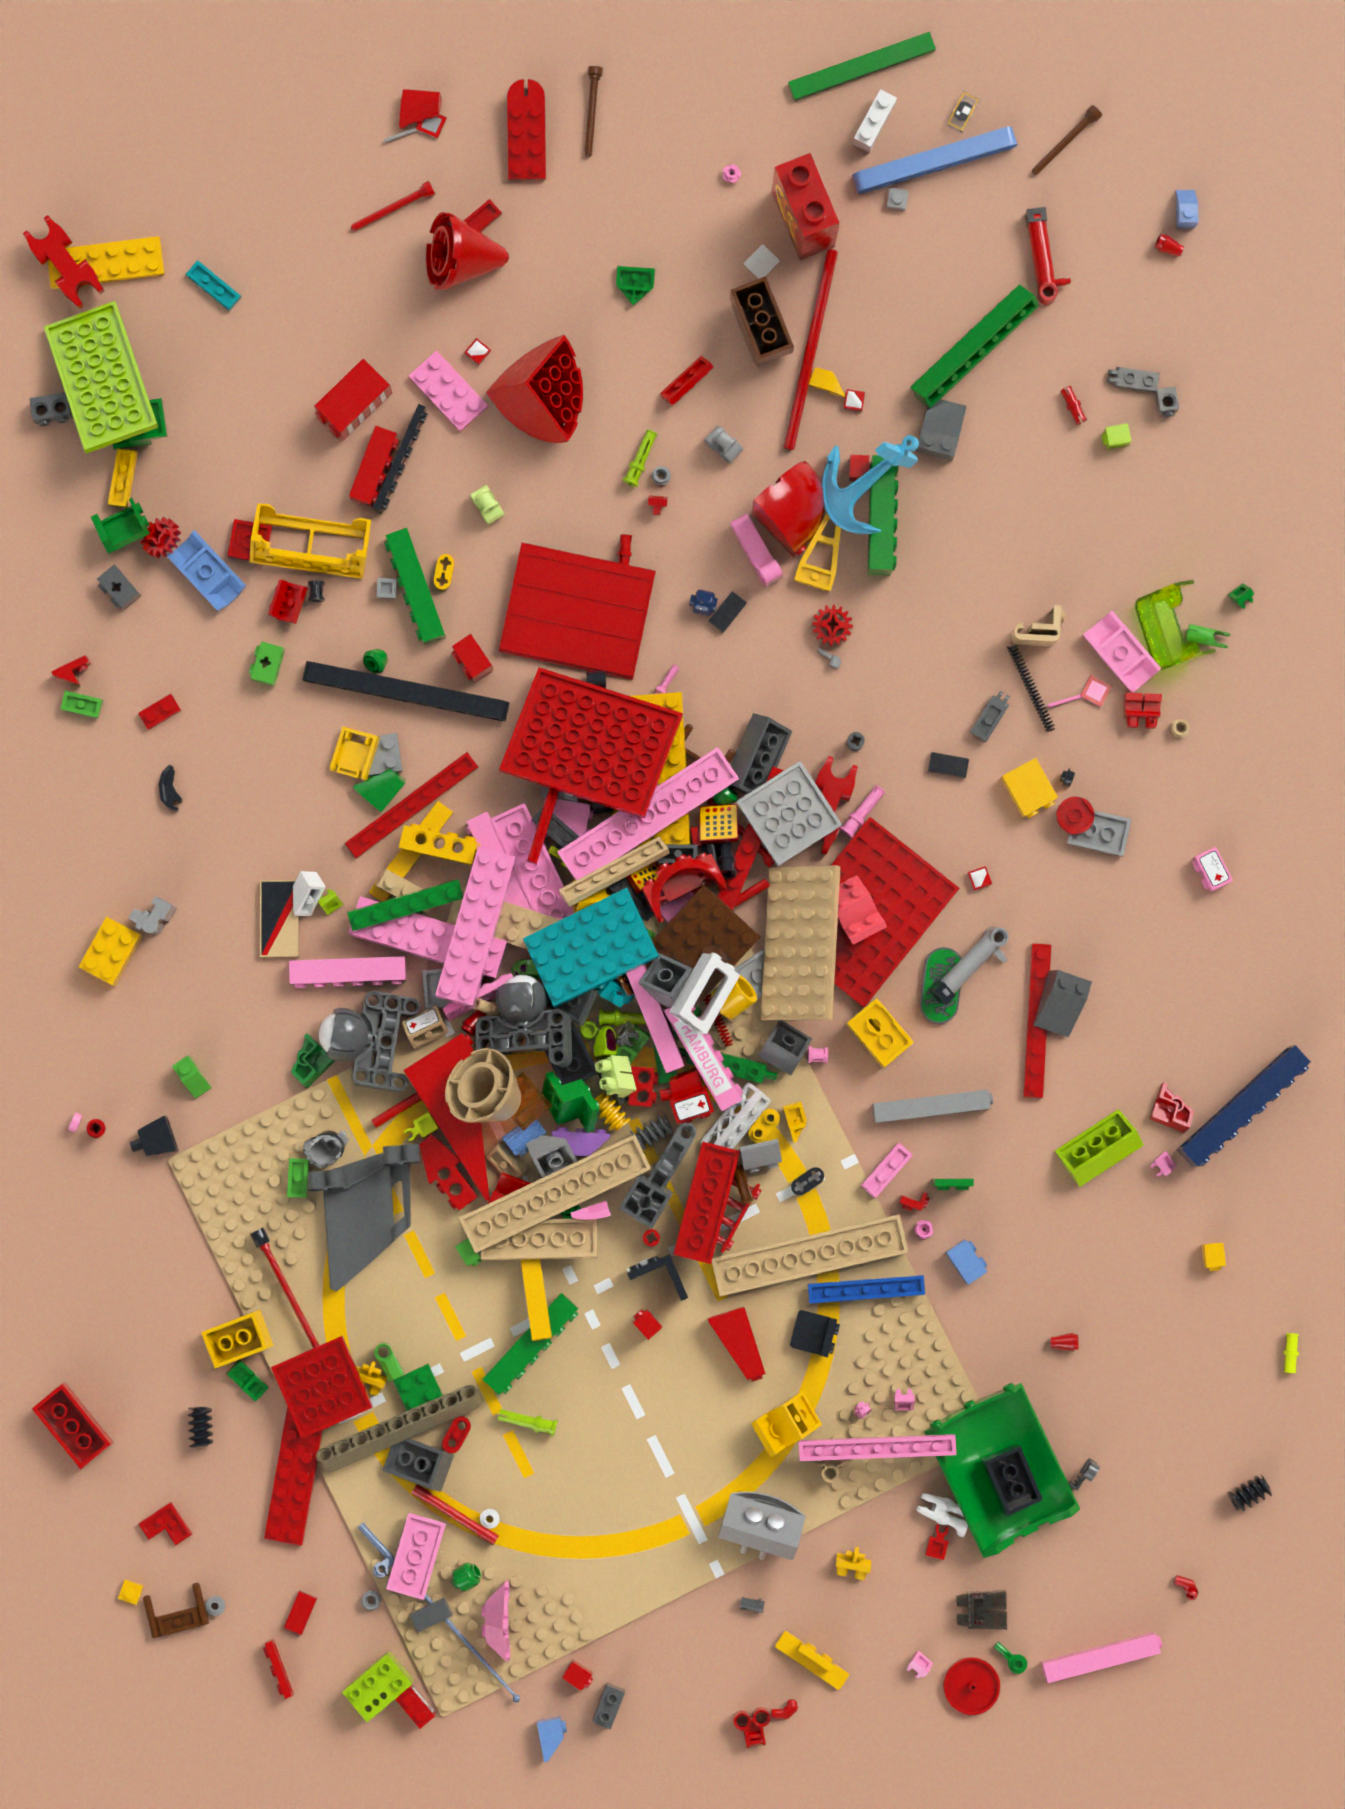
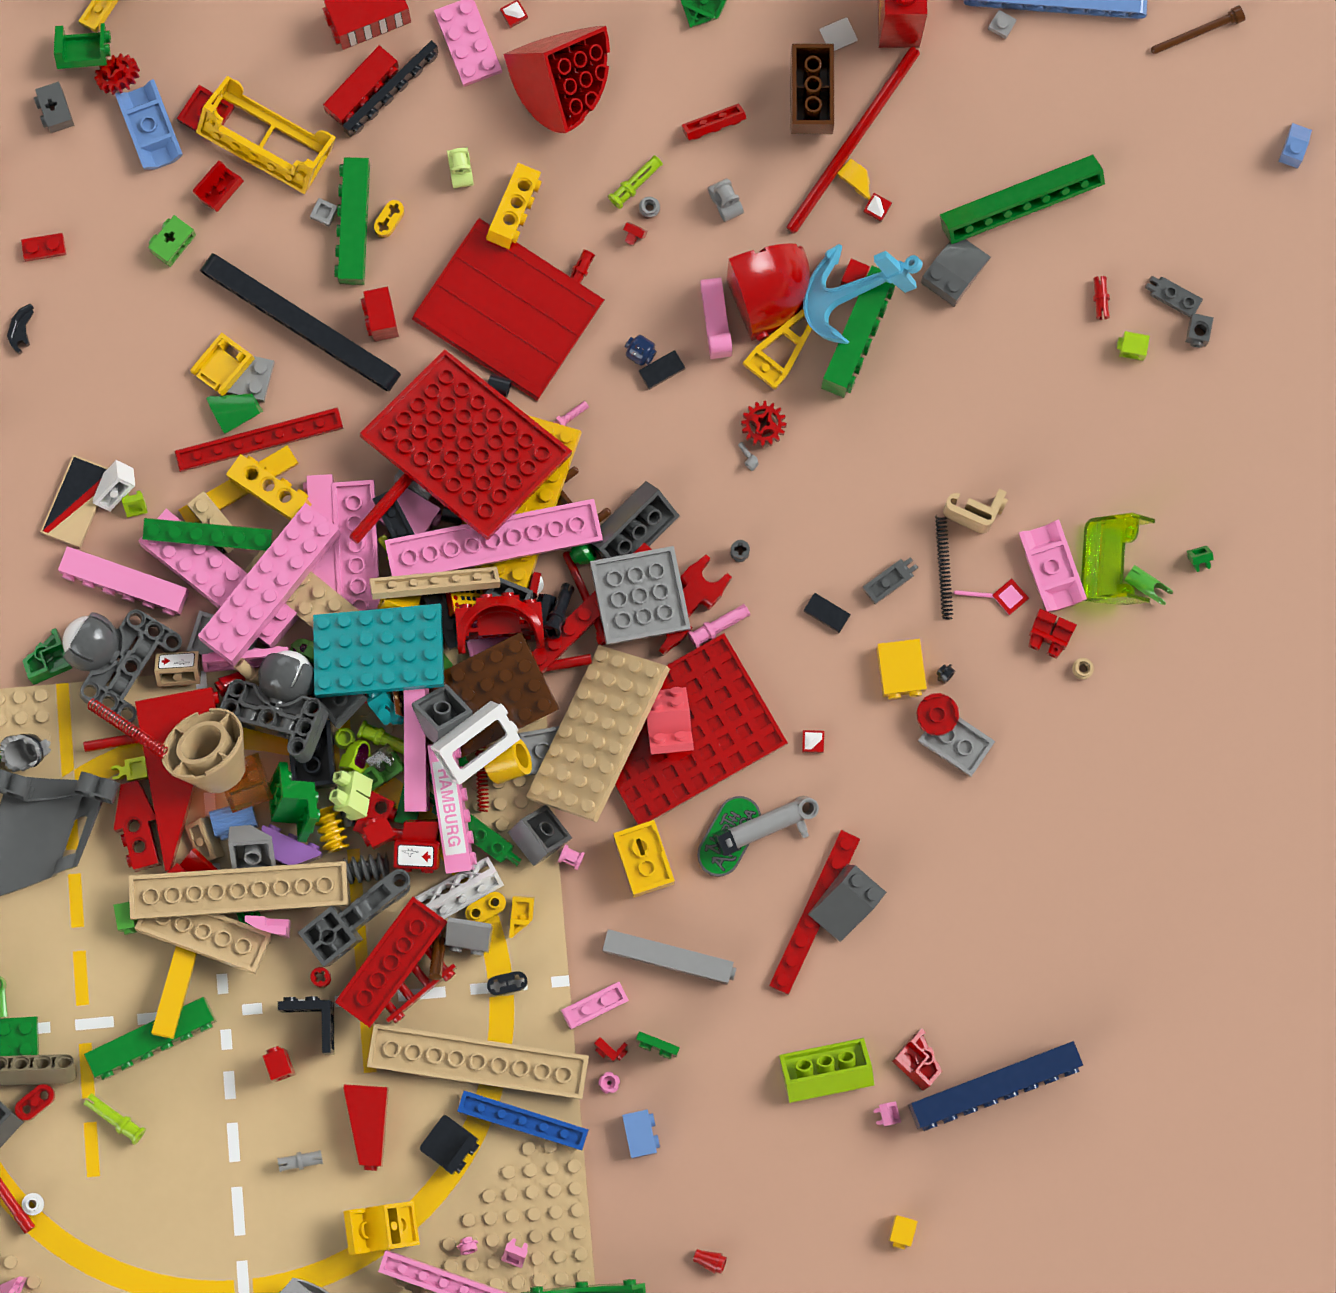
camera: 25 degrees right, 5 degrees down
(316, 591) = (251, 187): black bush -> none
(375, 660) = (282, 279): green cone -> none
(407, 1097) = (126, 732): none -> red piece
(545, 548) = (505, 234): none -> yellow brick
(651, 1099) = (378, 832): none -> red brick
(696, 1395) = (300, 1160): none -> light grey pin
(719, 823) = (564, 579): yellow tile -> none
(1041, 252) = (1128, 135): red piece -> none
(1168, 245) = (1263, 175): red cone -> none
(1212, 870) = (1059, 826): brick -> none

